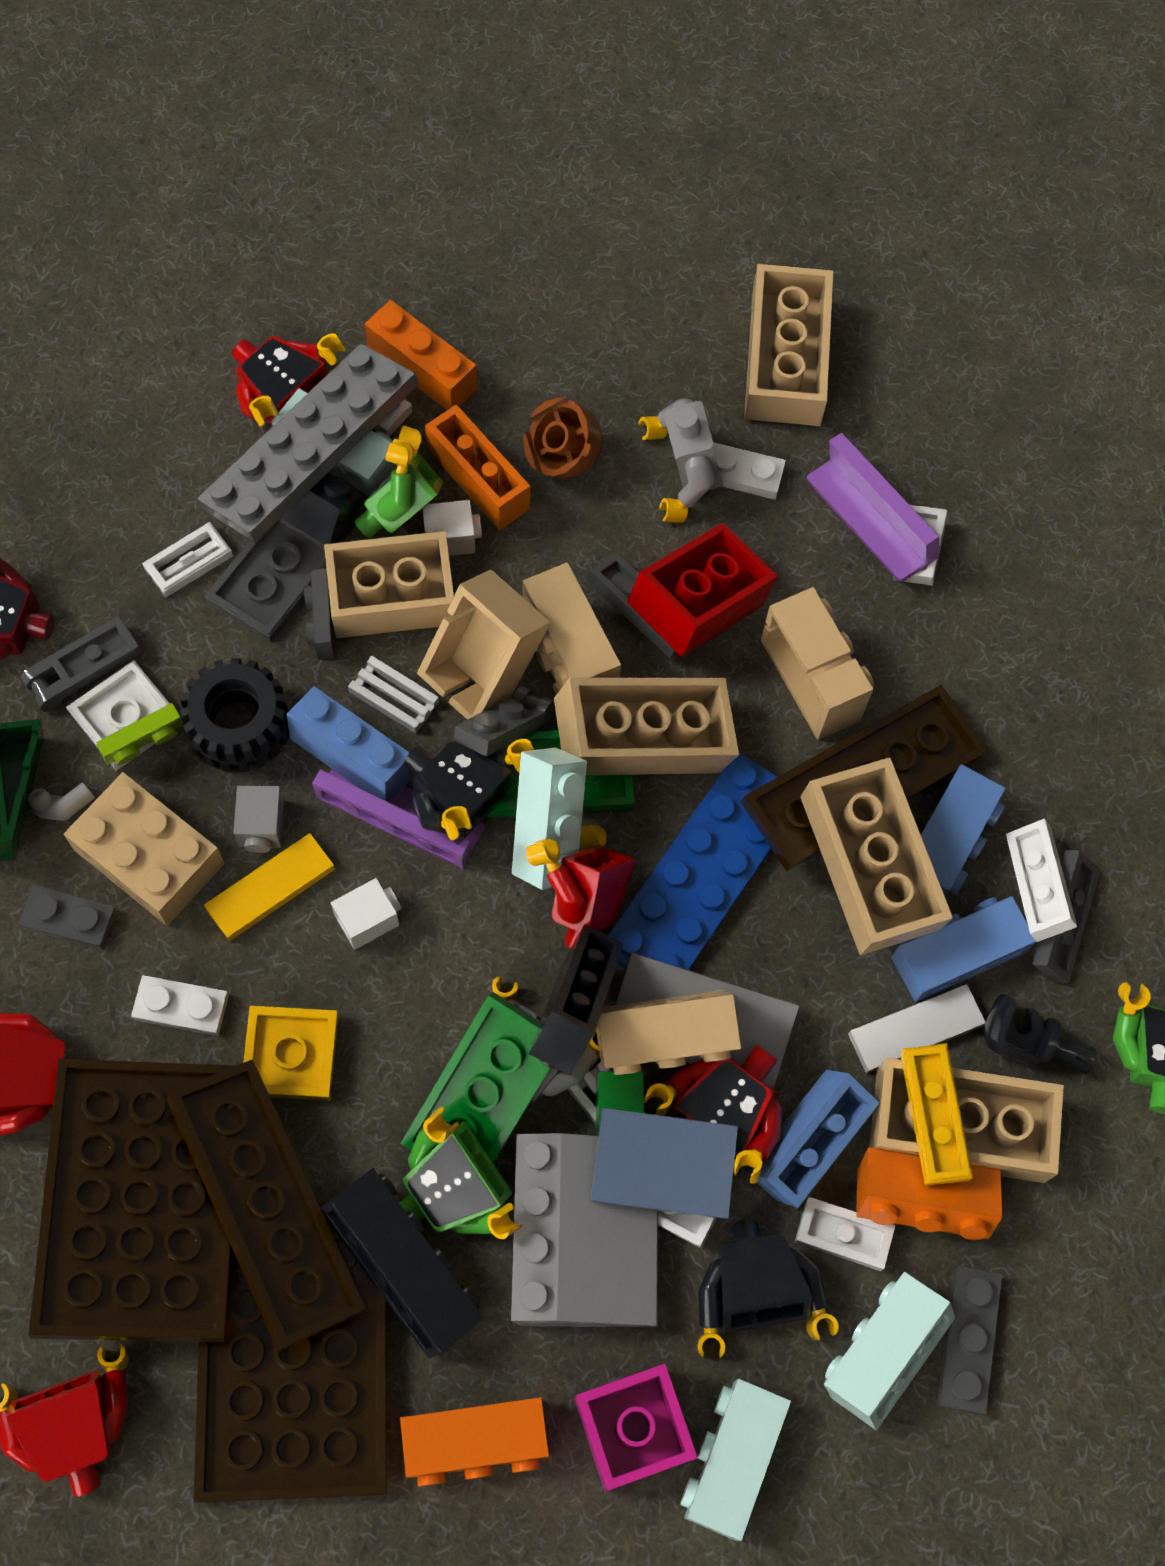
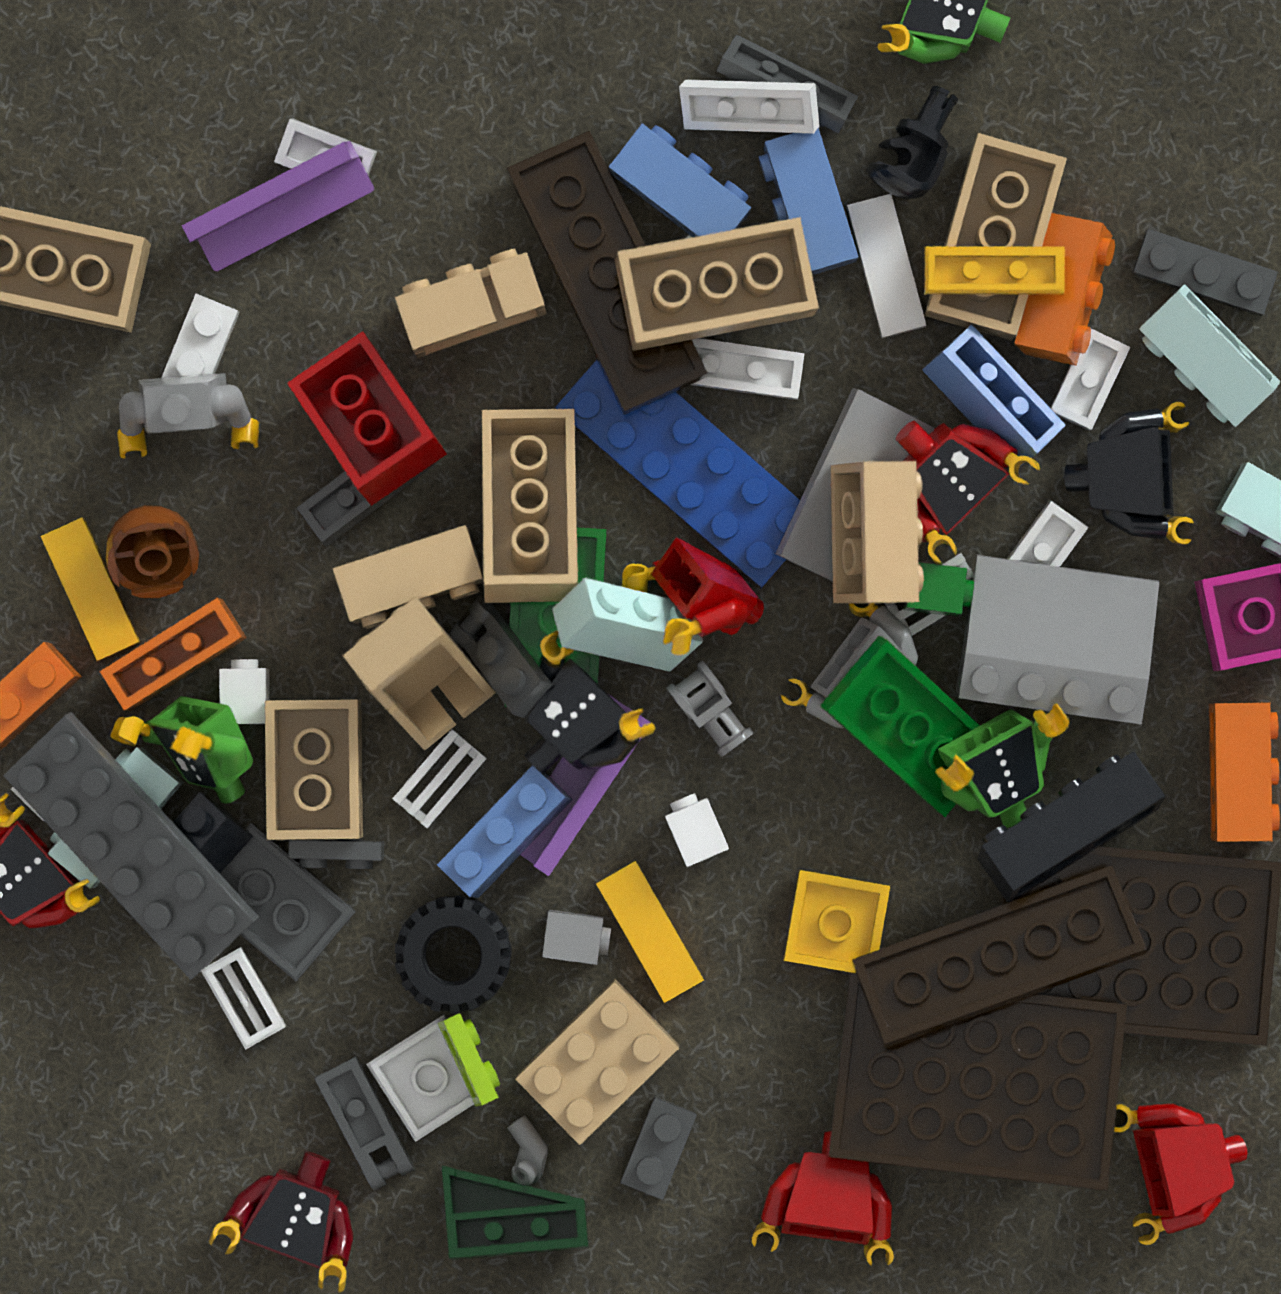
camera: 80 degrees left, 20 degrees up
(180, 1005) = (770, 1034): white plate -> none
(484, 910) = (708, 706): none -> light grey connector
(511, 415) = (90, 589): none -> yellow tile
(576, 1000) = (841, 620): black brick -> none
(664, 1163) = (1009, 553): sand blue tile -> none
(799, 912) = (750, 369): none -> white plate

